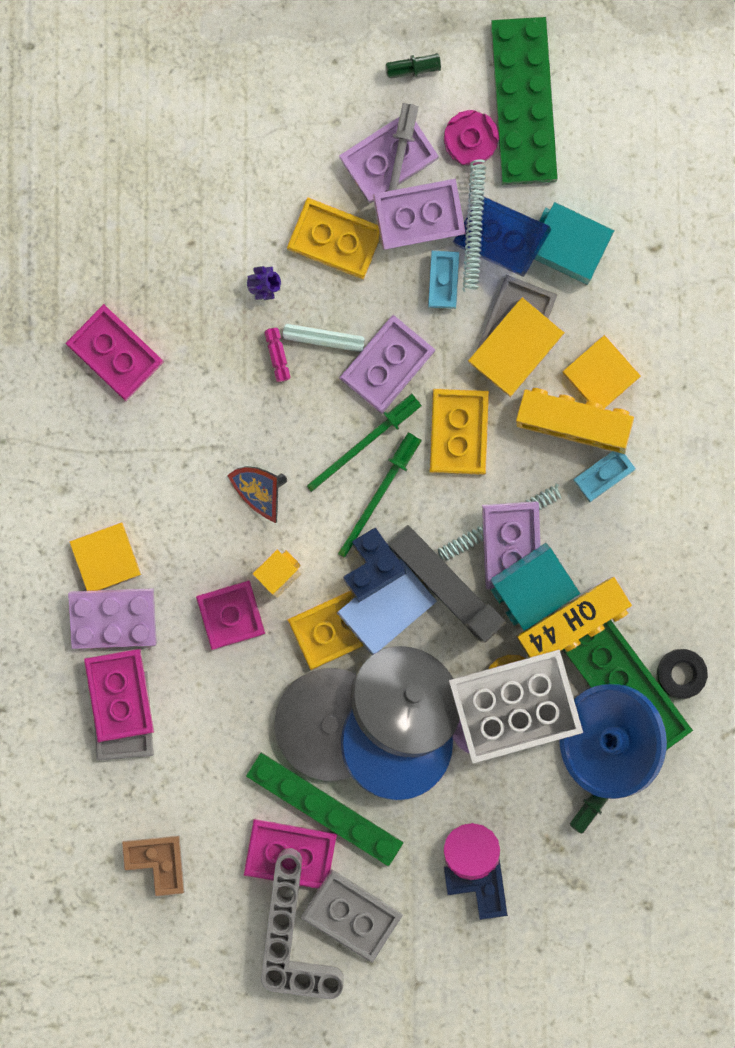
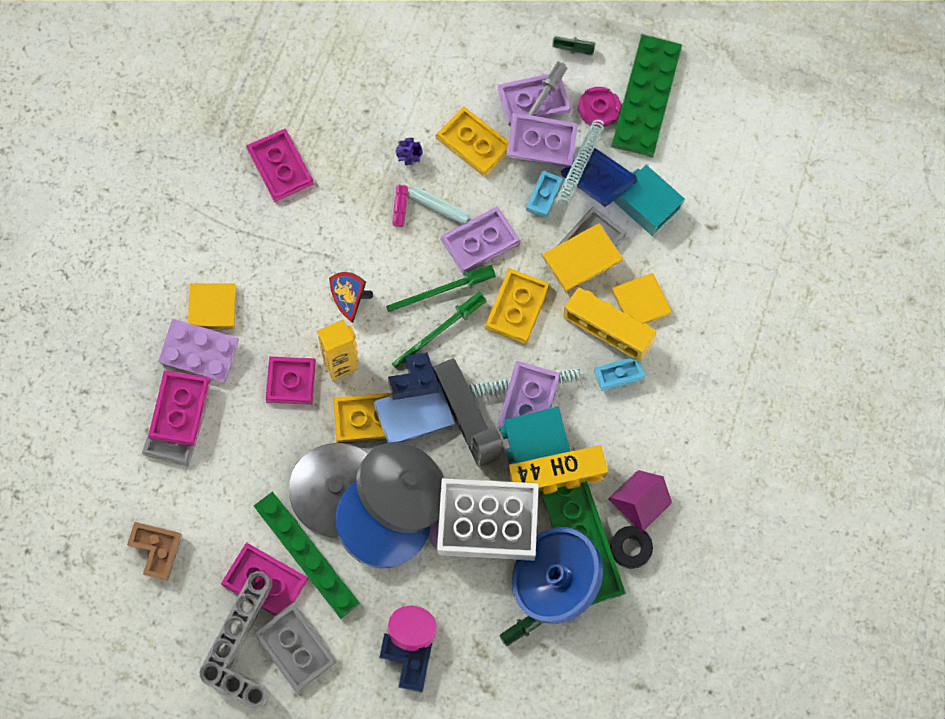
camera: 15 degrees right, 15 degrees down
(676, 615) = (642, 498): none -> magenta slope

